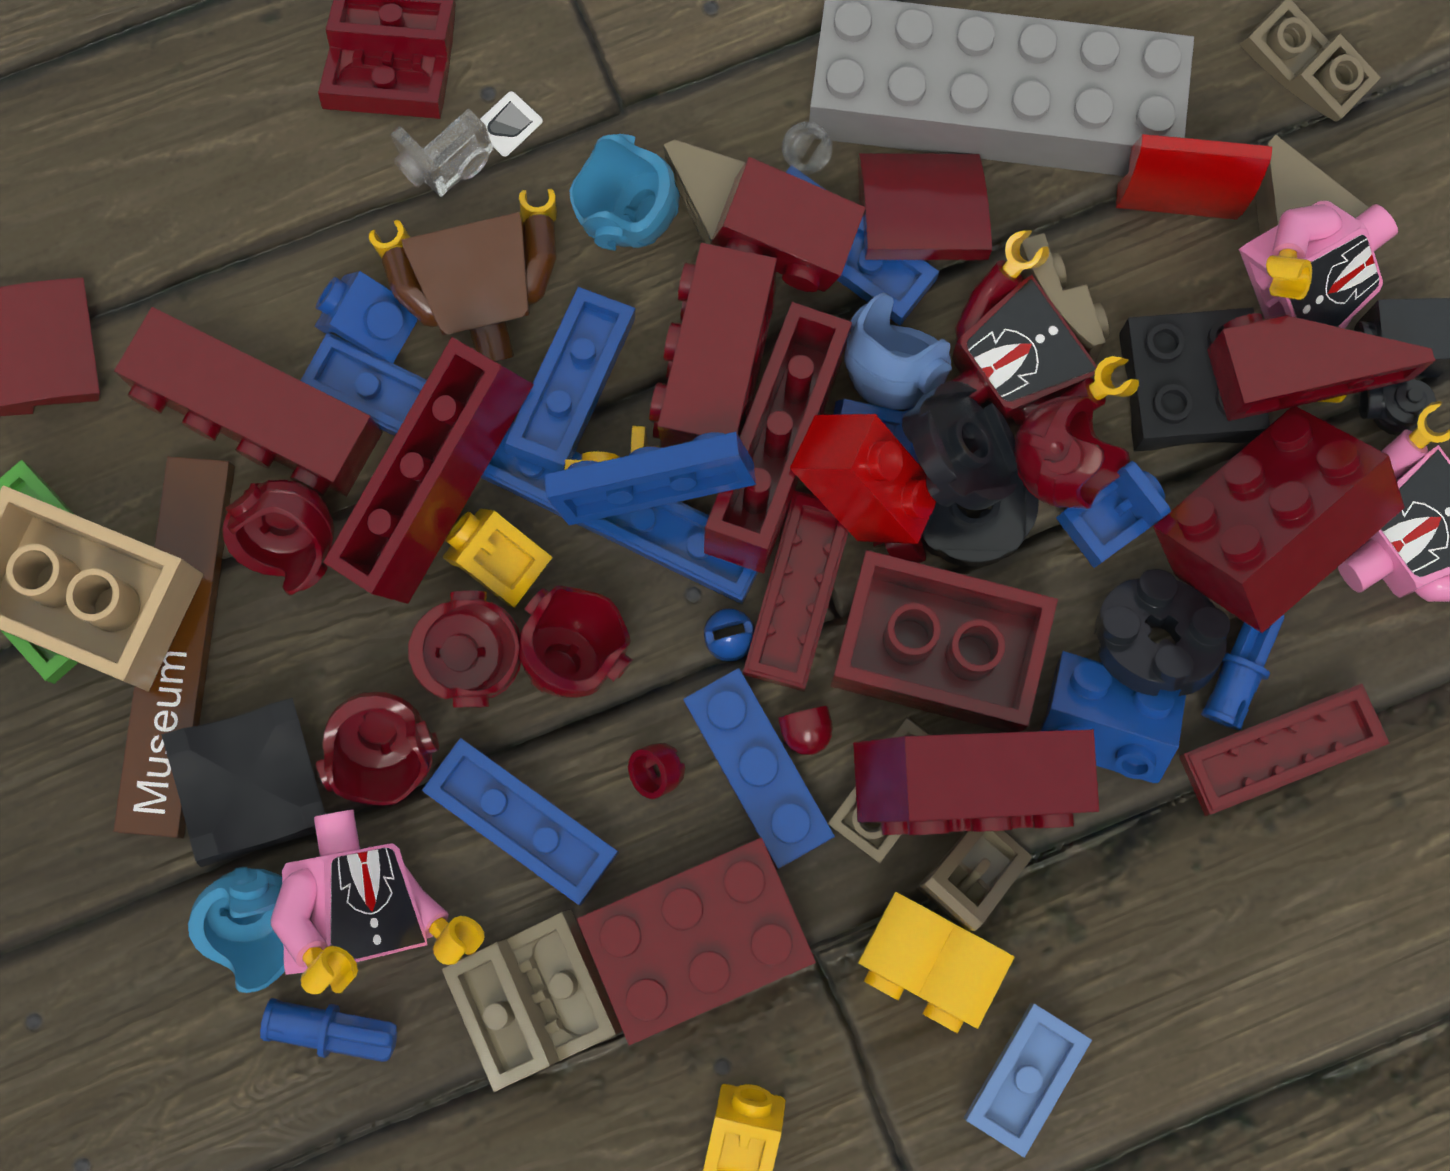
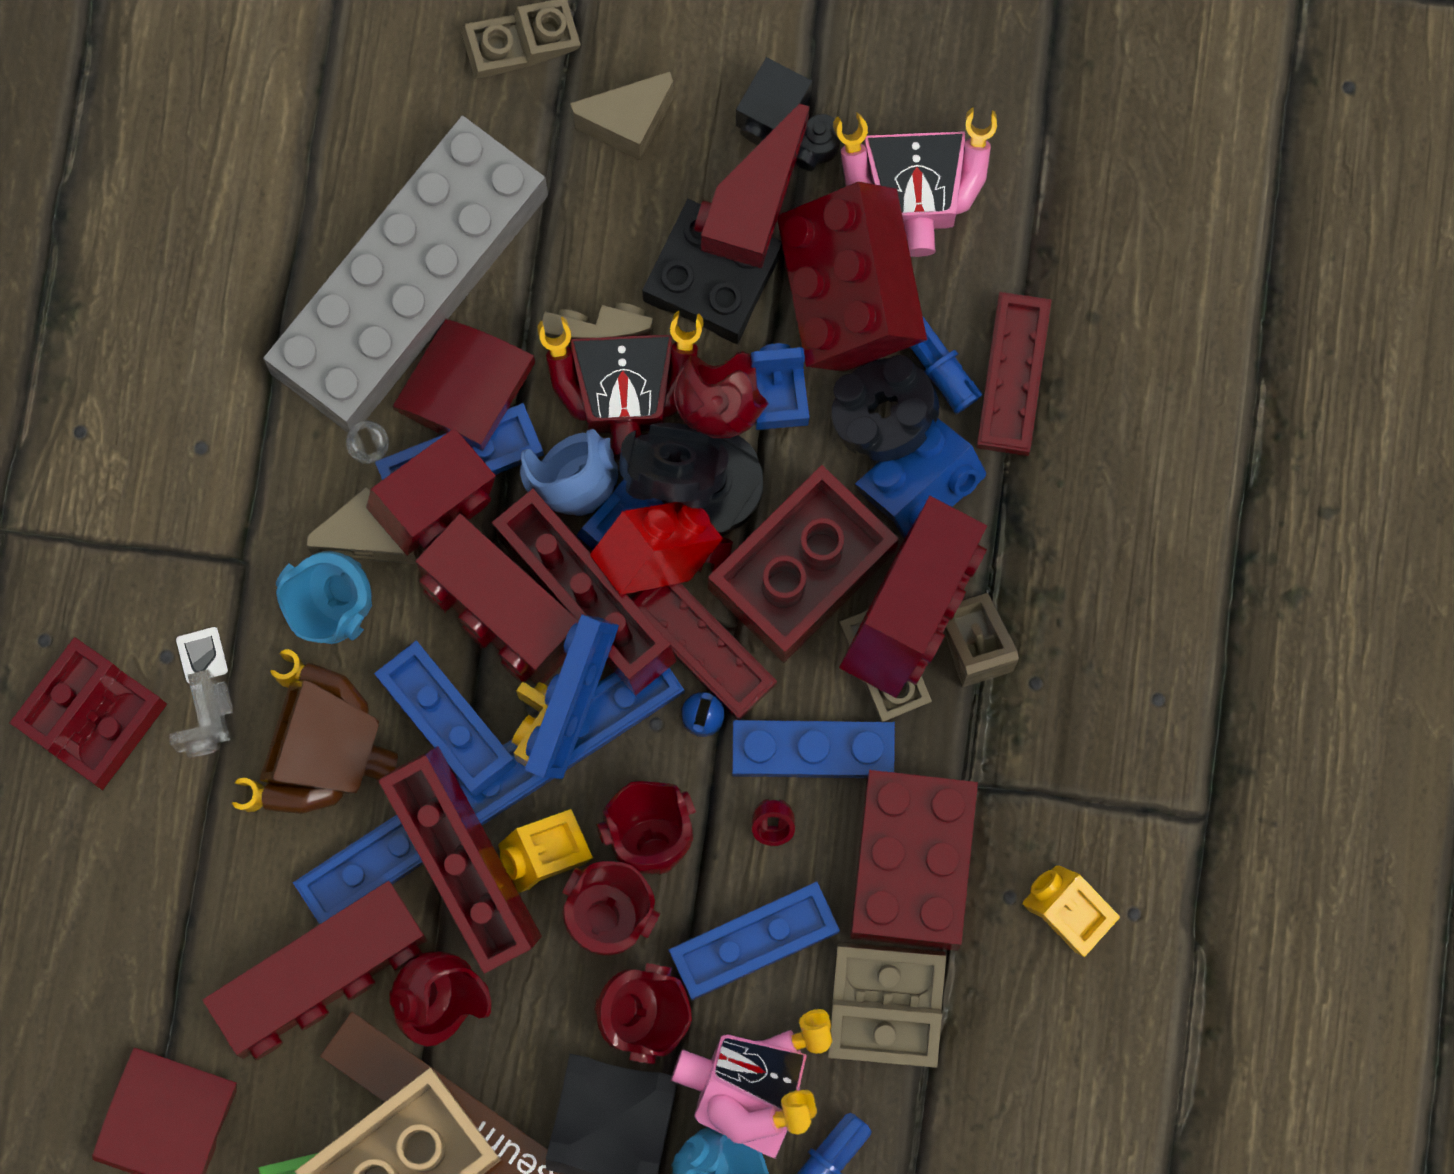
camera: 65 degrees left, 0 degrees up
(365, 315) = (296, 847): blue bracket -> none
(807, 730) = (807, 697): dark red hinge -> none
(935, 962) = (1022, 703): yellow brick -> none
(1027, 1079) = (1138, 687): medium blue plate -> none
(1192, 176) = (567, 182): red slope -> none
(1319, 263) = (689, 137): torso -> none

